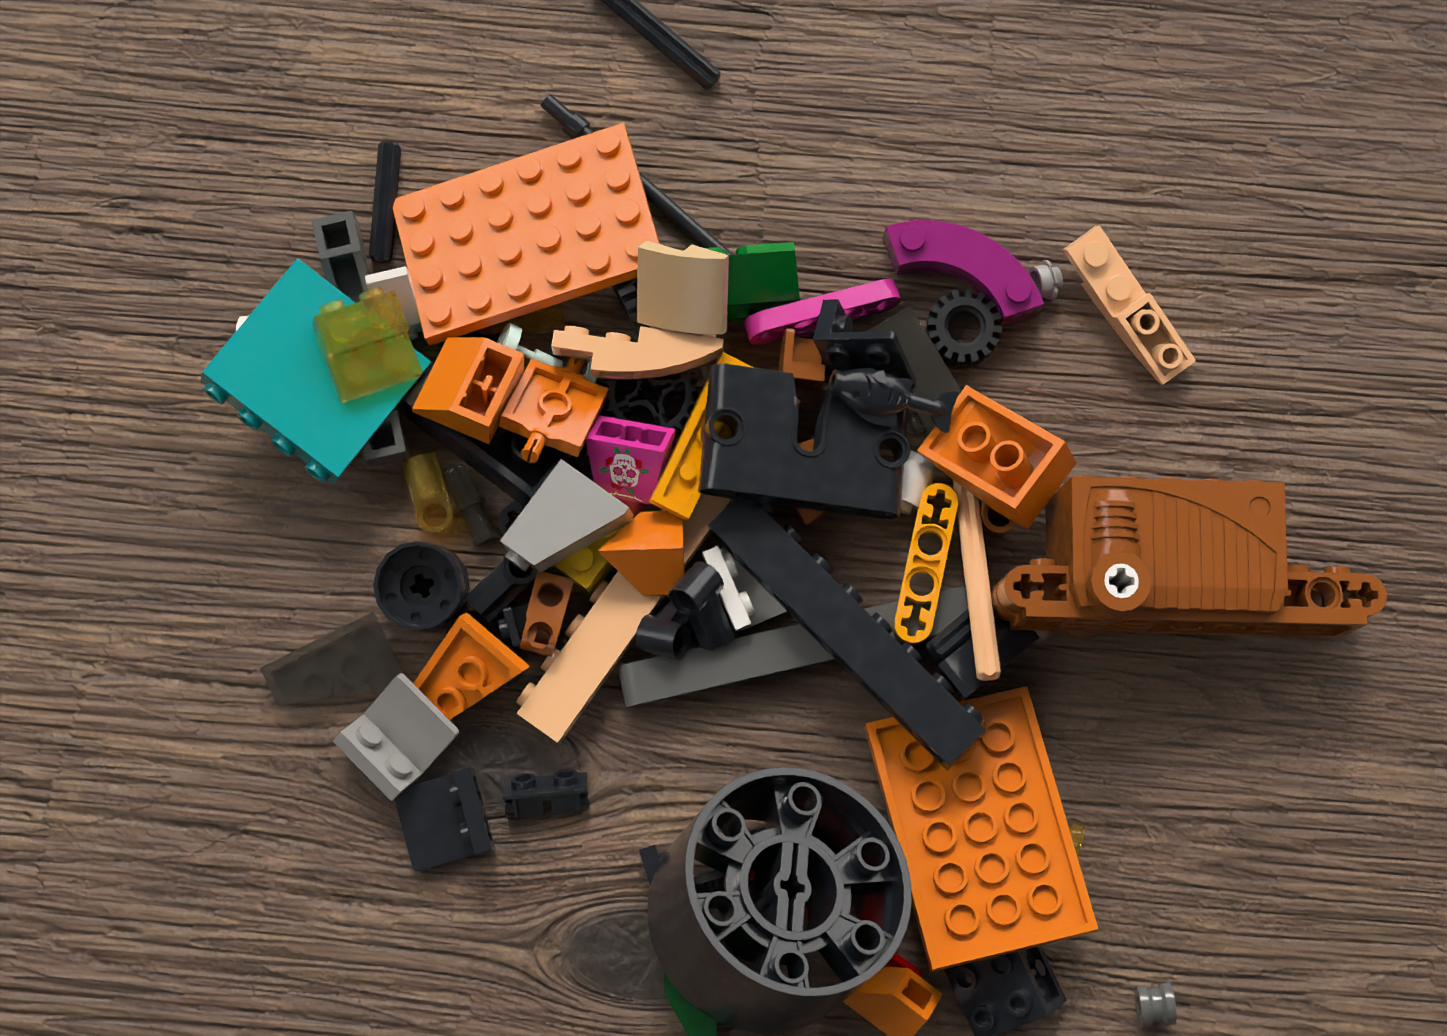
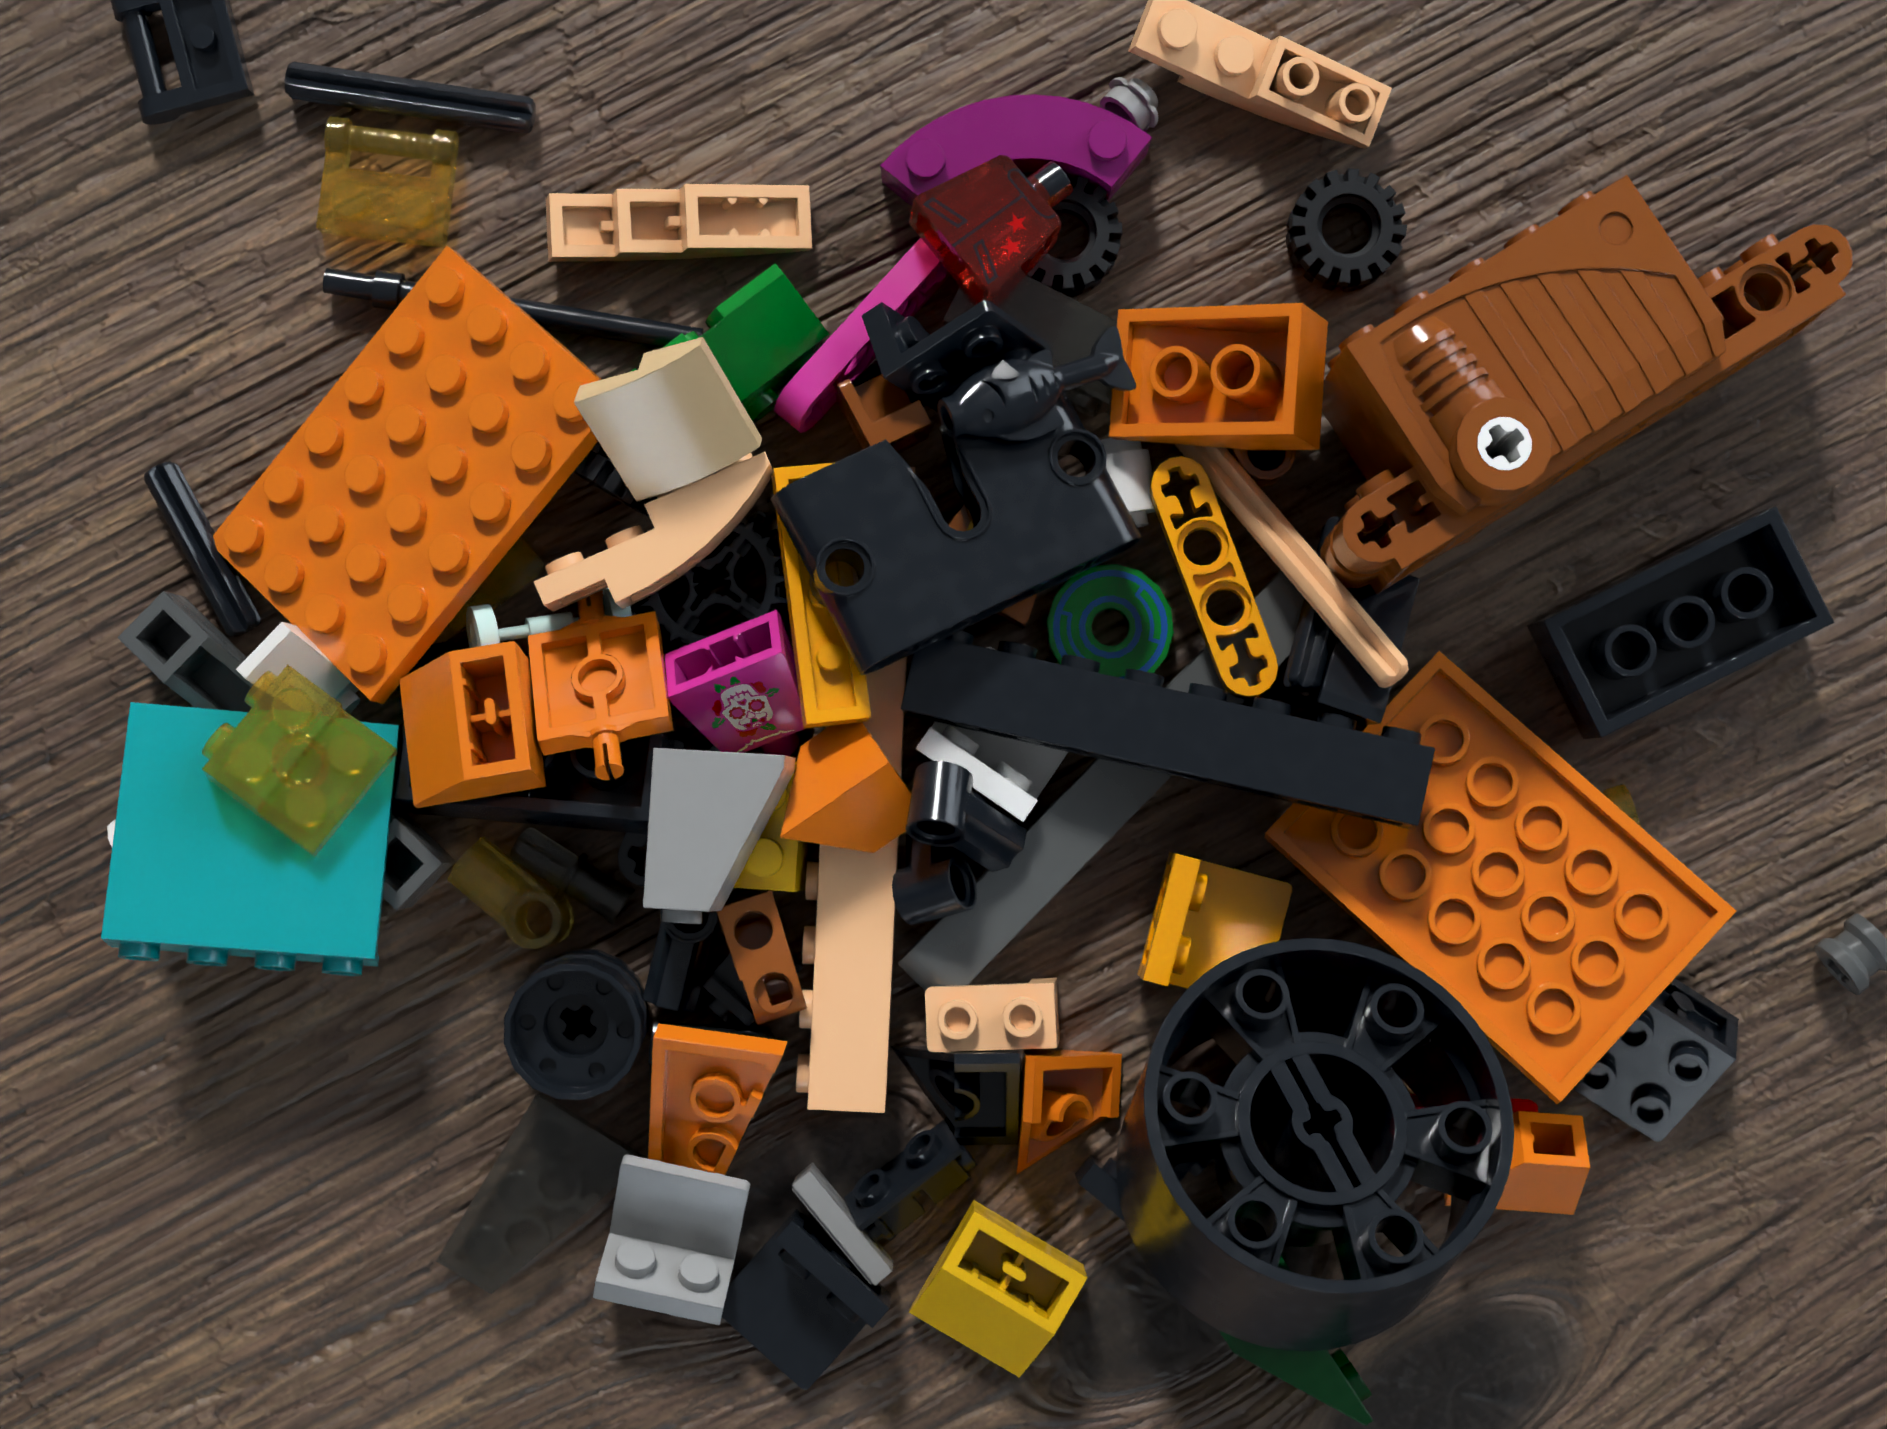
camera: 35 degrees left, 5 degrees up
(493, 791) = (839, 1223): none -> light grey tile
(555, 882) = (999, 1289): none -> yellow slope
(603, 78) = (381, 202): none -> clear yellow plate
(612, 763) = (970, 1091): none -> black slope
(651, 728) = (993, 1016): none -> light nougat bracket
(659, 802) = (1063, 1098): none -> orange slope
(757, 189) = (679, 223): none -> light nougat slope
(806, 744) = (1207, 917): none -> light orange bracket
(870, 540) = (1118, 590): none -> green tile
(926, 295) = (992, 224): none -> clear red torso
(1127, 398) = (1351, 192): none -> black tyre
(1170, 754) = (1680, 624): none -> black brick

